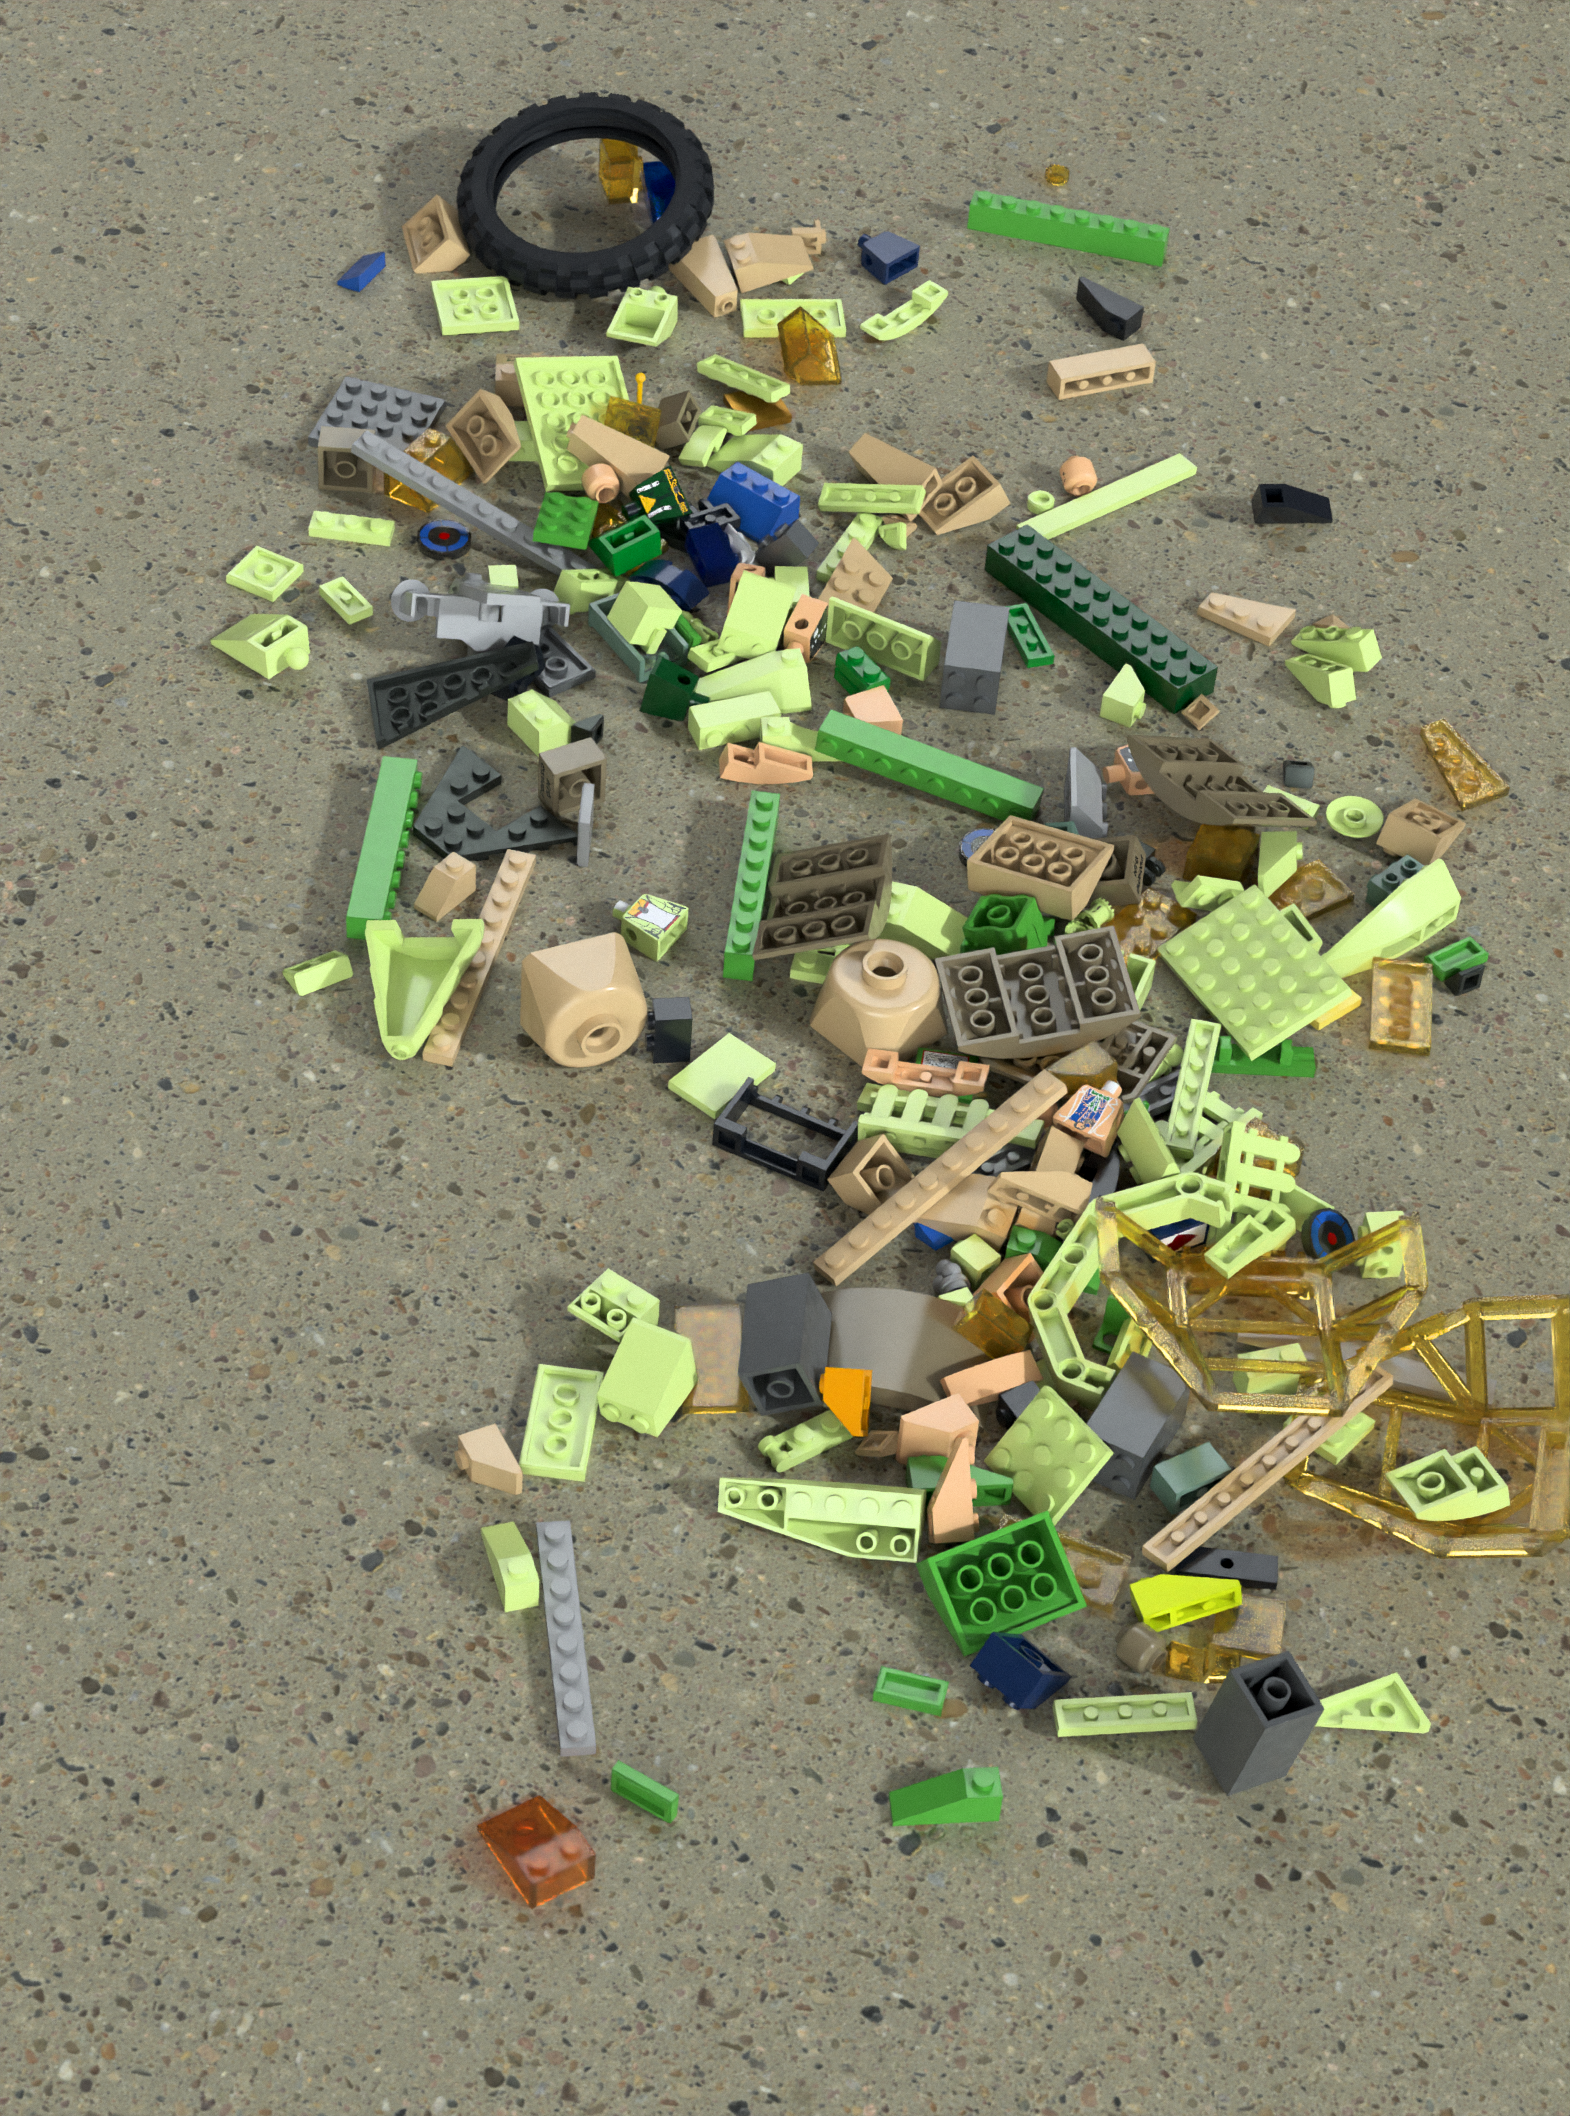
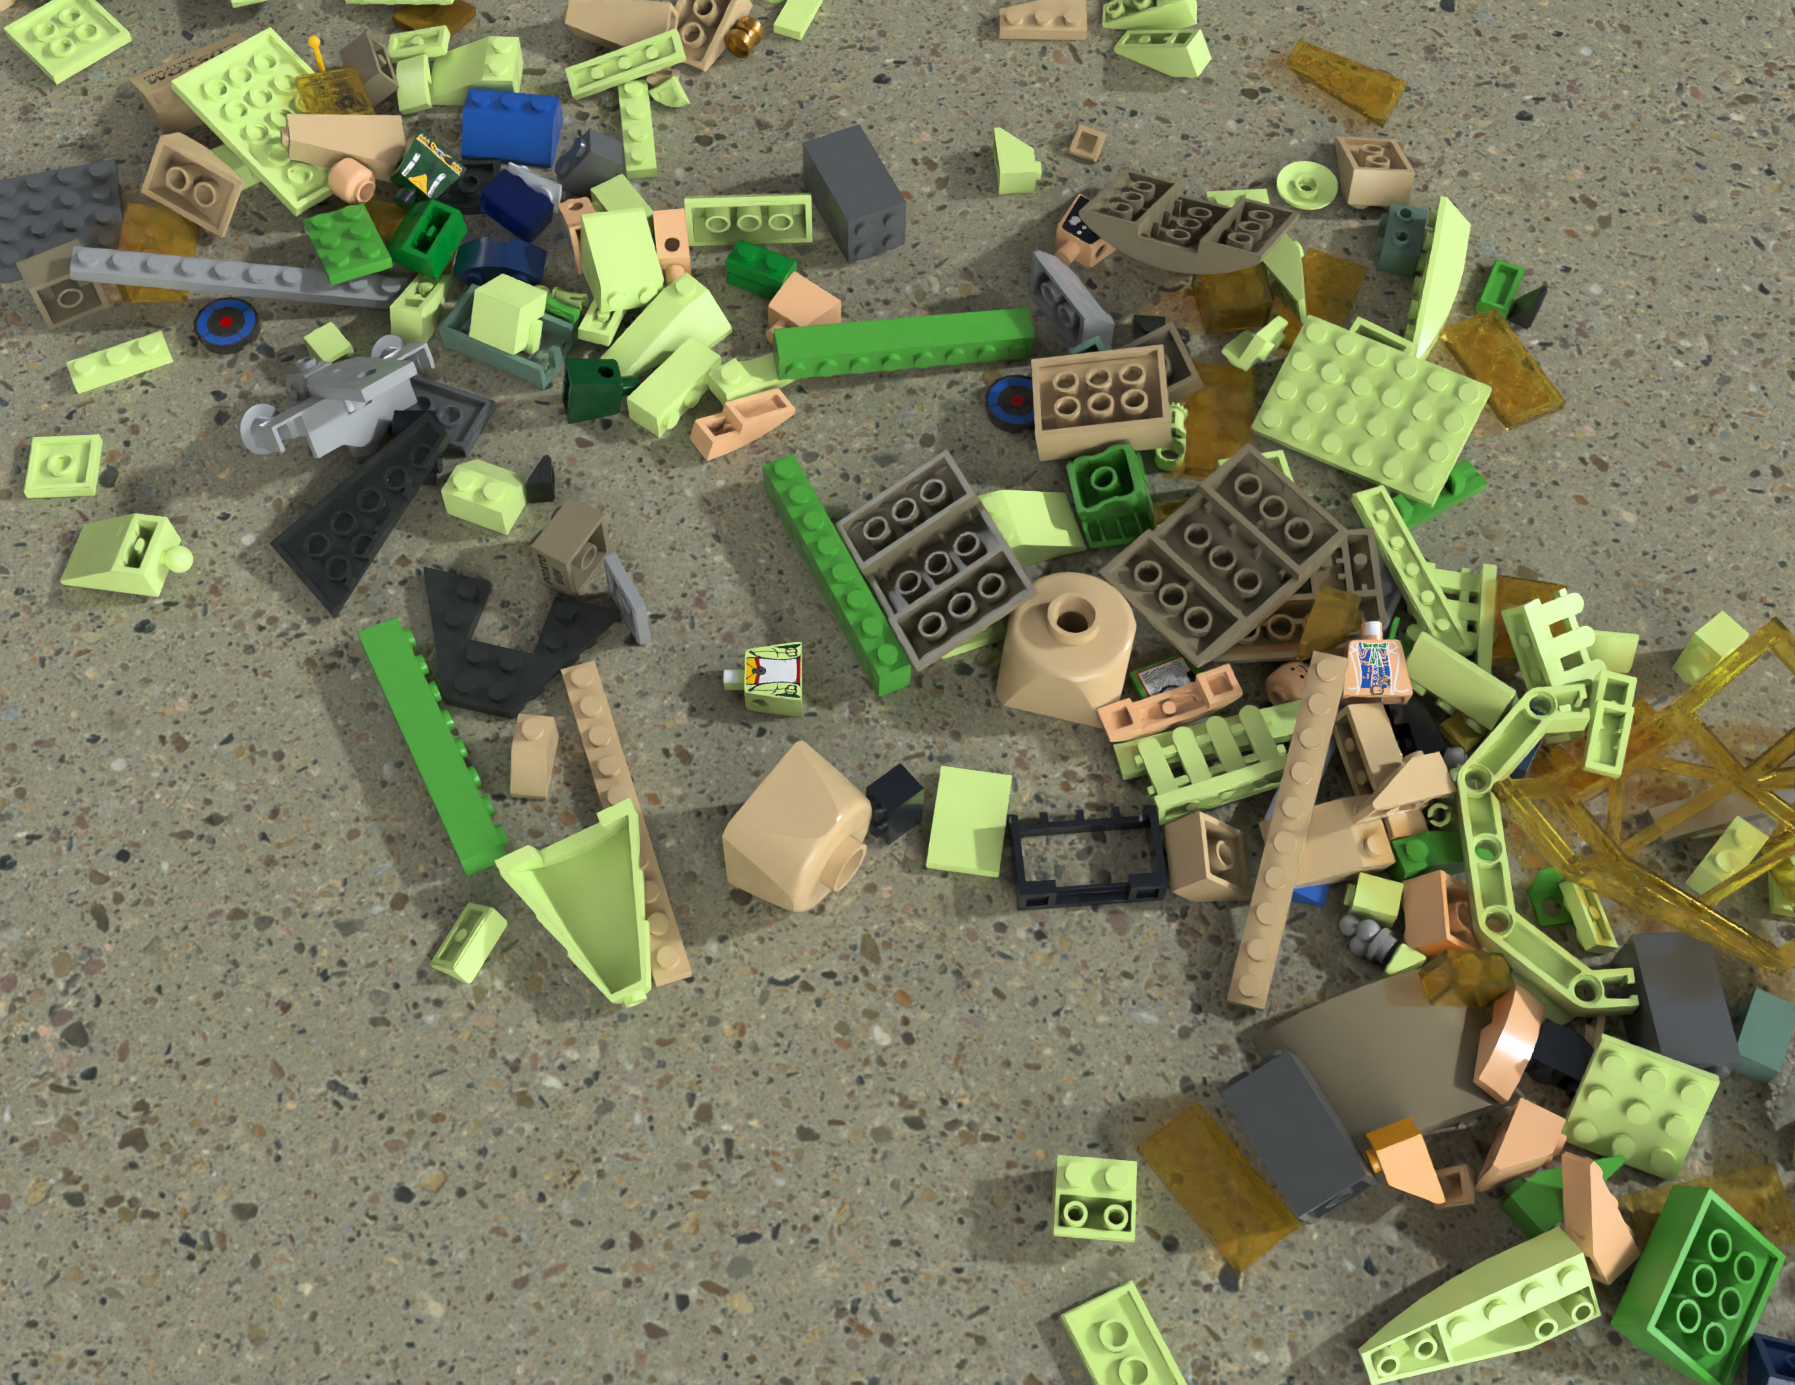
camera: 30 degrees left, 15 degrees up
(346, 600) = (176, 454): yellowish green plate -> none
(647, 1378) = (1198, 1276): yellowish green slope -> none
(708, 515) = (484, 165): black hinge -> none
(804, 1441) = (1380, 1232): yellowish green plate -> none
(858, 579) = (675, 165): tan wing -> none
(987, 522) = (744, 37): none -> pearl gold wheel
(1028, 637) = (893, 152): green plate -> none
(1100, 617) = (925, 87): dark green brick -> none
(1298, 774) = (1218, 163): pearl dark grey slope -> none
(1325, 1233) = (1656, 673): pearl dark grey tile -> none

